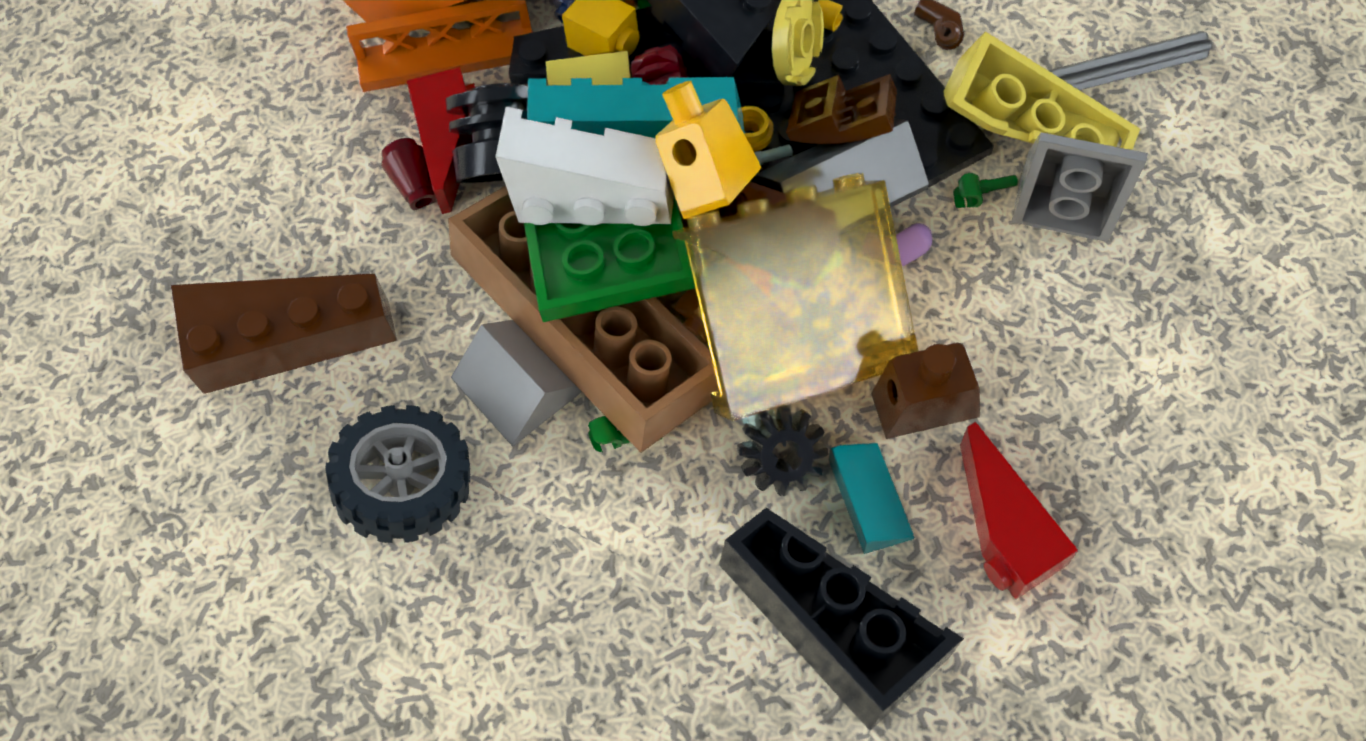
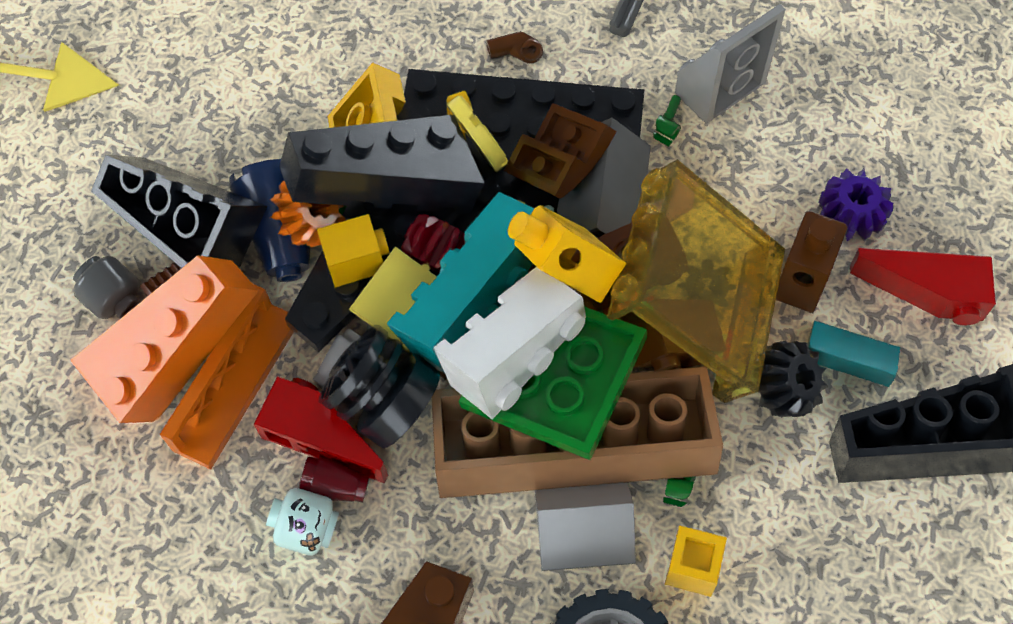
camera: 55 degrees left, 0 degrees up
(357, 175) = (302, 521): none -> light aqua head
(538, 485) = (696, 561): none -> yellow panel
(1022, 99) = (632, 46): light yellow wedge -> none
(1049, 411) = (857, 203): none -> dark purple gear

